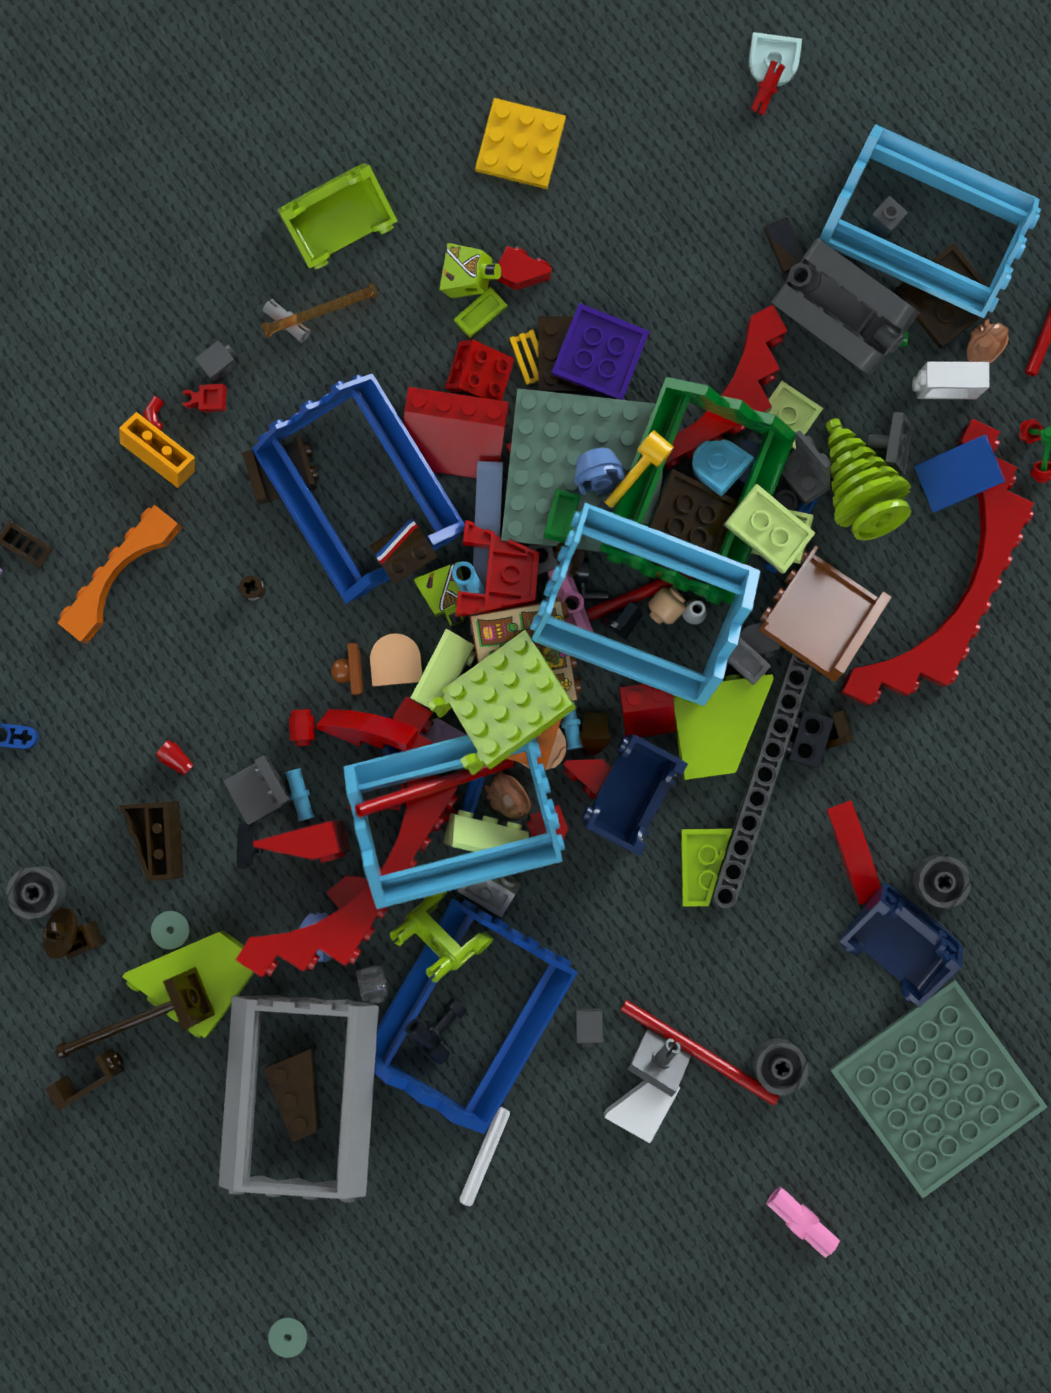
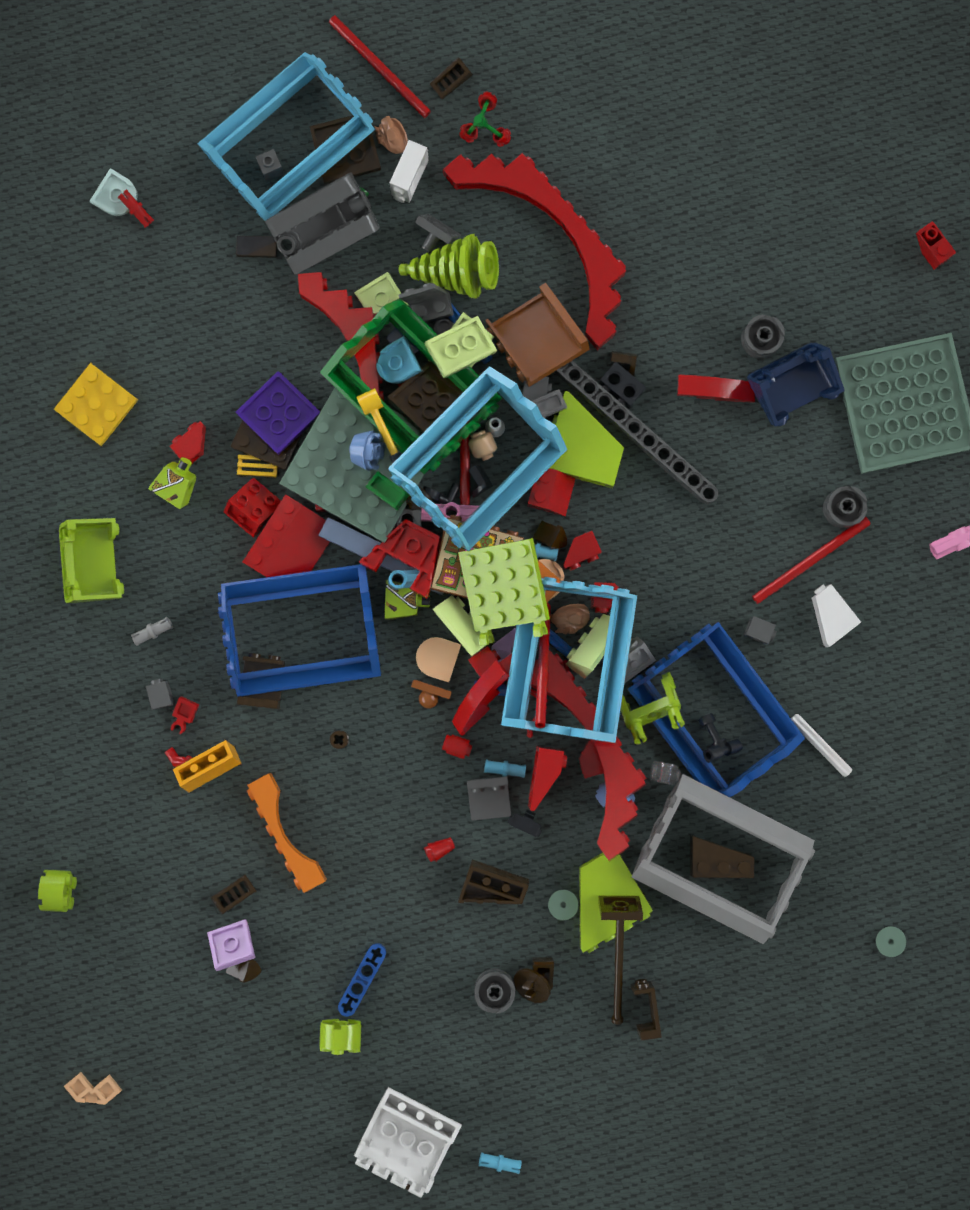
camera: 70 degrees left, 0 degrees up
(319, 310) = (154, 636): clear orange bar -> none
(403, 551) = (361, 616): dark brown panel -> none
(480, 313) = (208, 487): lime tile -> none
(632, 793) = (607, 526): dark blue windscreen -> none
(659, 1062) = (806, 590): tile -> none
(700, 863) = (677, 501): lime wing -> none
(959, 473) = (478, 195): blue tile -> none

